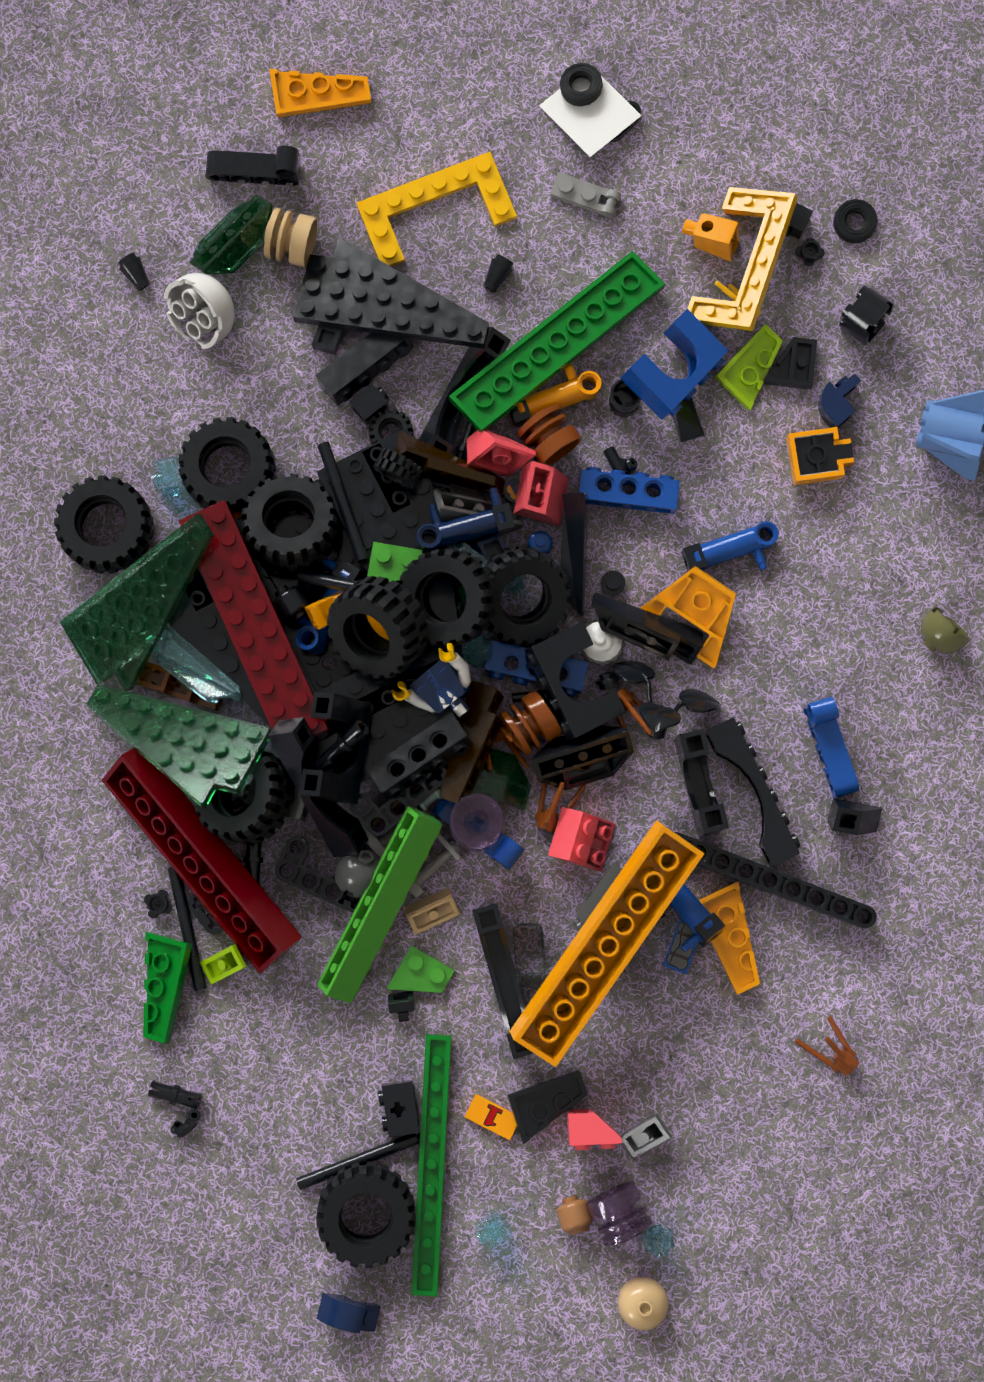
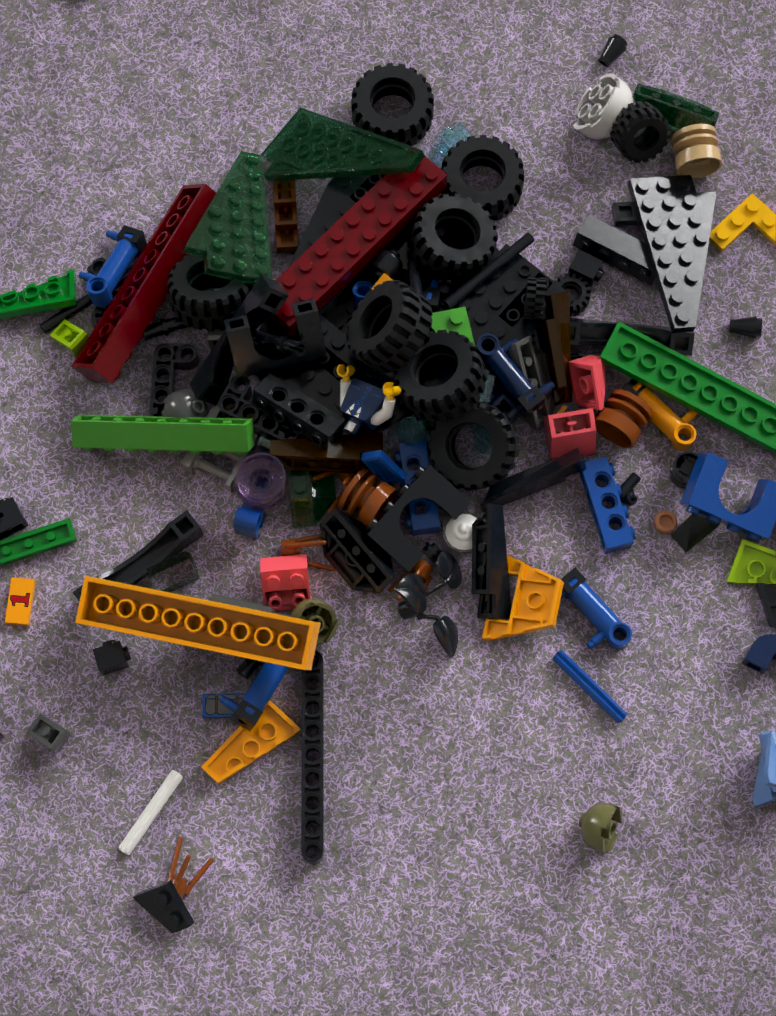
camera: 70 degrees right, 10 degrees down
(144, 861) = (100, 286): none -> blue piece
(193, 668) = (301, 213): clear light blue wedge -> none
(248, 283) = (647, 143): none -> black tyre
(255, 167) = (751, 121): black beam -> none
(401, 1004) = (87, 489): black tile -> none
(420, 973) = (120, 496): bright green wing -> none
(431, 911) = (176, 485): tan slope -> none
(508, 694) = (383, 466): none -> blue tile
(541, 541) = (528, 451): blue piece -> none
(544, 1102) = (47, 638): black wing -> none
(588, 1129) = (36, 680): coral slope -> none
(590, 1043) = (111, 657): none -> black brick
(612, 583) = (520, 524): black plate -> none
(632, 824) = (321, 612): none -> olive cylinder
(666, 441) = (665, 522): none -> nougat tile
(692, 755) = (398, 642): black arch -> none
(761, 1061) = (150, 812): none -> white axle
(775, 837) = (352, 747): black arch -> none
(801, 585) = (589, 686): none -> blue axle
(818, 455) = (711, 655): piece -> none
(831, 746) = (454, 765): blue beam -> none
(853, 817) = (398, 810): black slope -> none
(861, 1079) = (165, 906): none -> black wing

